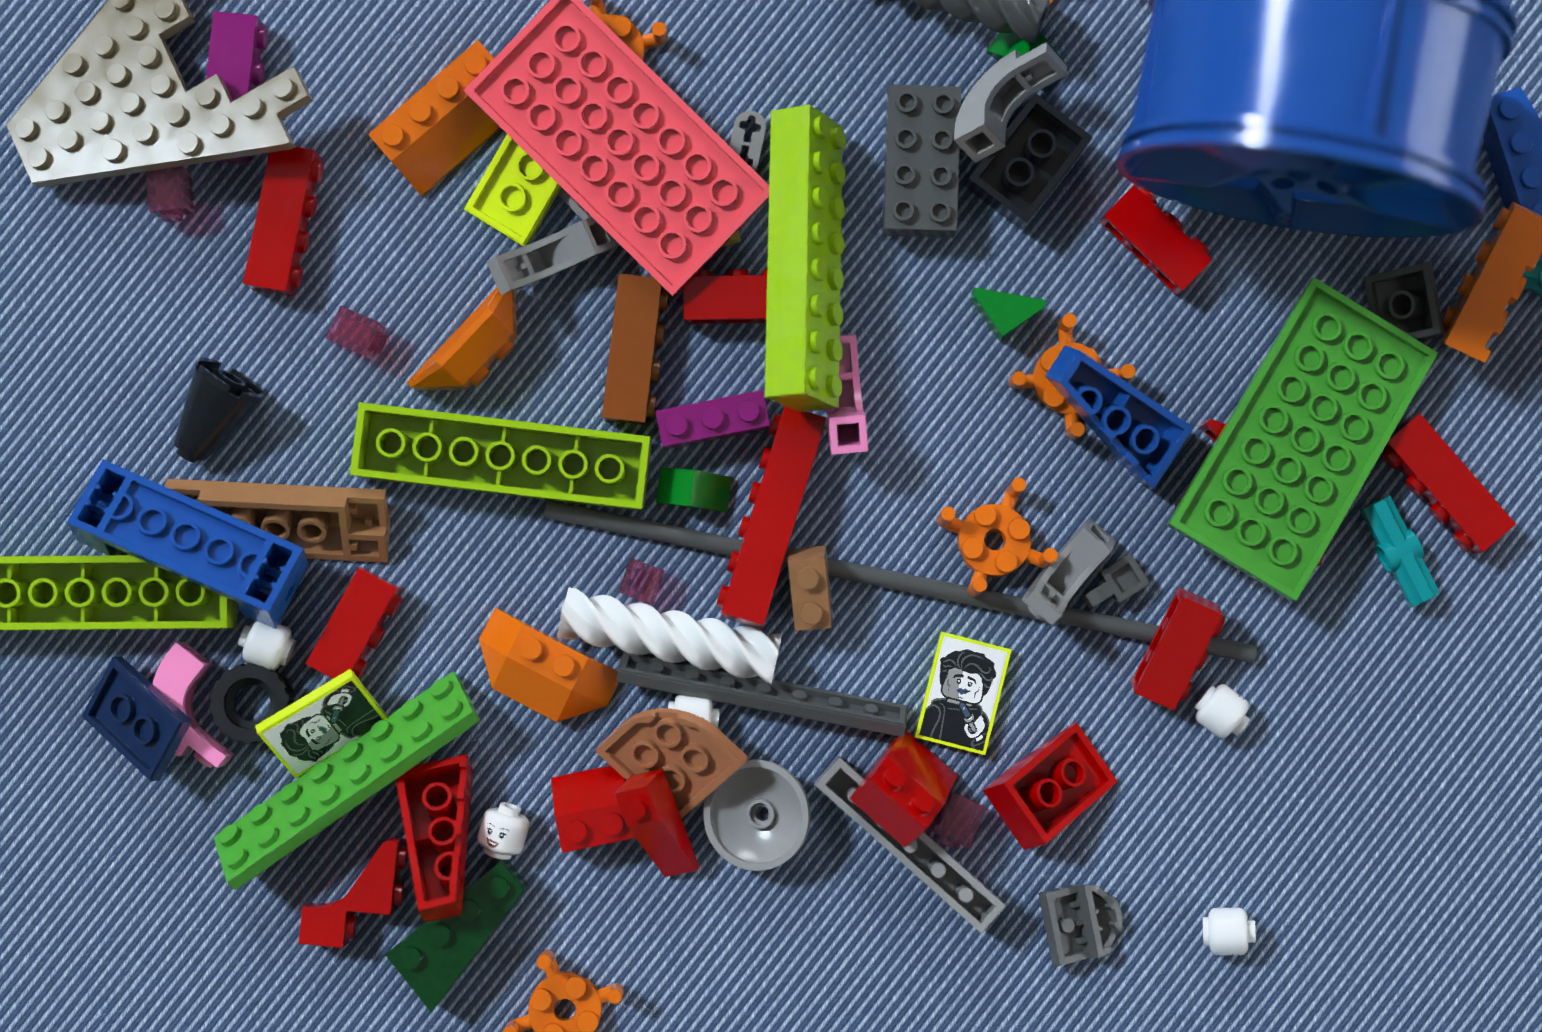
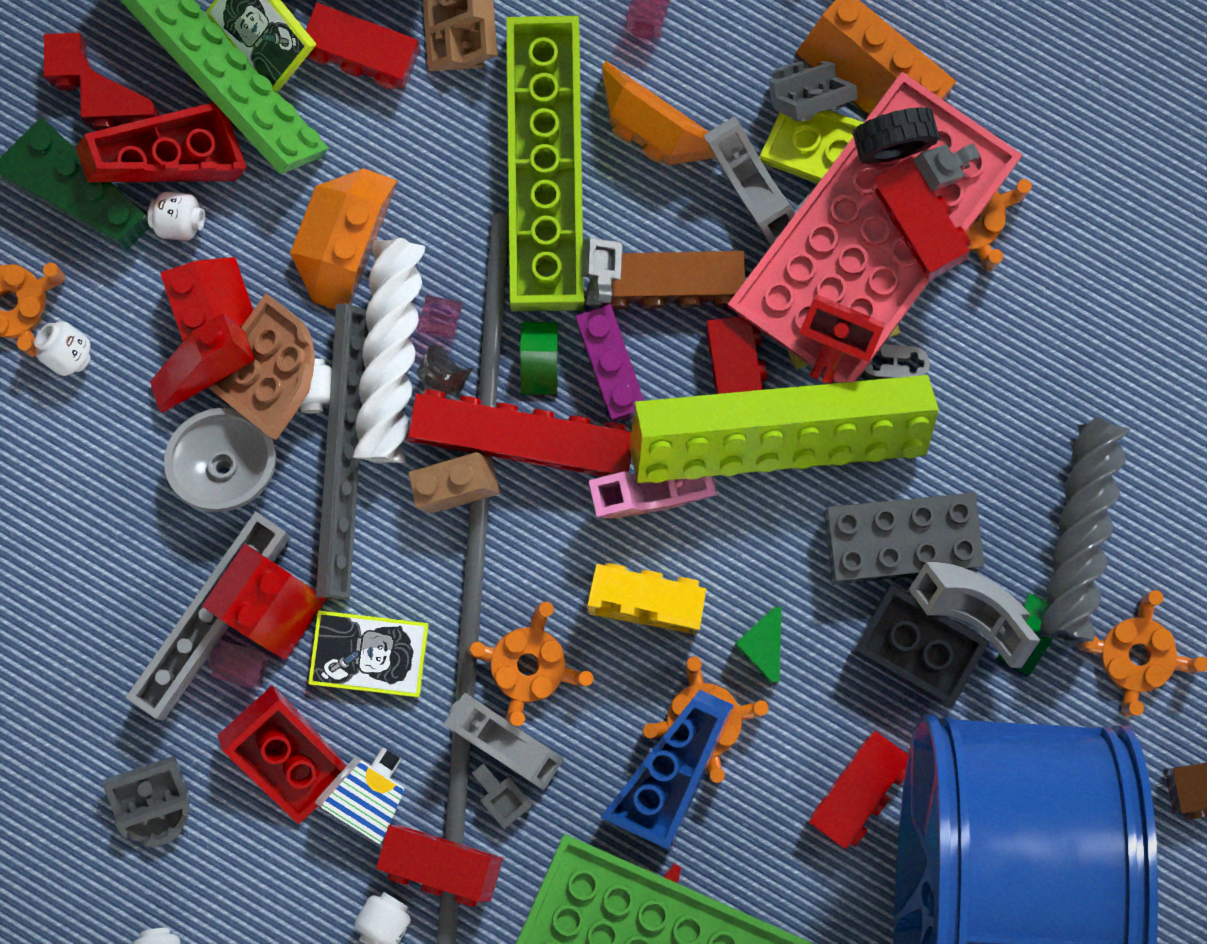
camera: 85 degrees right, 5 degrees down
(464, 186) = (809, 91): none -> dark grey slope
(533, 103) = (896, 135): none -> black tyre
(571, 62) = (943, 167): none -> dark grey plate
(615, 412) = (602, 264): none -> plate
(617, 91) = (921, 219): none -> red brick
(622, 959) = (62, 348): none -> white head
(699, 586) = (441, 372): none -> clear smoke piece
(720, 188) = (840, 333): none -> red brick
(947, 415) = (646, 598): none -> yellow wedge
(1101, 713) = (365, 795): none -> torso

